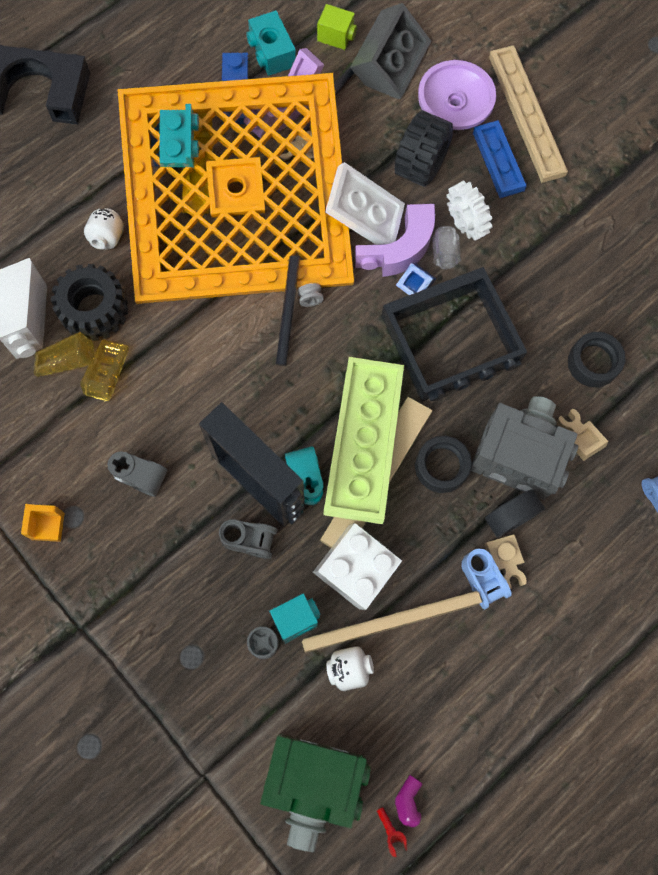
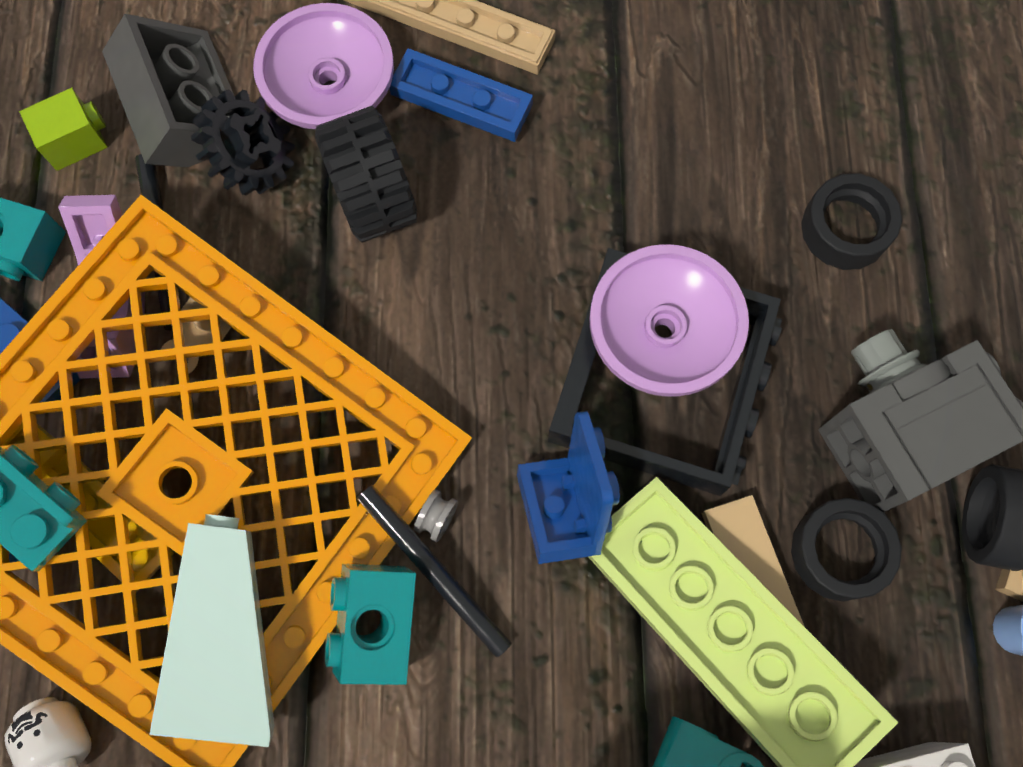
camera: 45 degrees left, 0 degrees up
(190, 249) = (215, 647): none -> light aqua slope
(263, 299) = (383, 654): none -> teal brick
(359, 332) = (570, 497): none -> blue bracket
(364, 206) = (377, 327): white plate -> none
(386, 86) = (242, 142): none -> black gear
(409, 249) = (476, 287): lavender arch -> none
(415, 279) = (539, 351): slope -> none
(446, 247) = (529, 270): clear brick -> none
(469, 210) = (510, 194): white gear -> none
(475, 293) = (675, 290): none -> lavender dish
(588, 437) = (944, 329): tan plate -> none

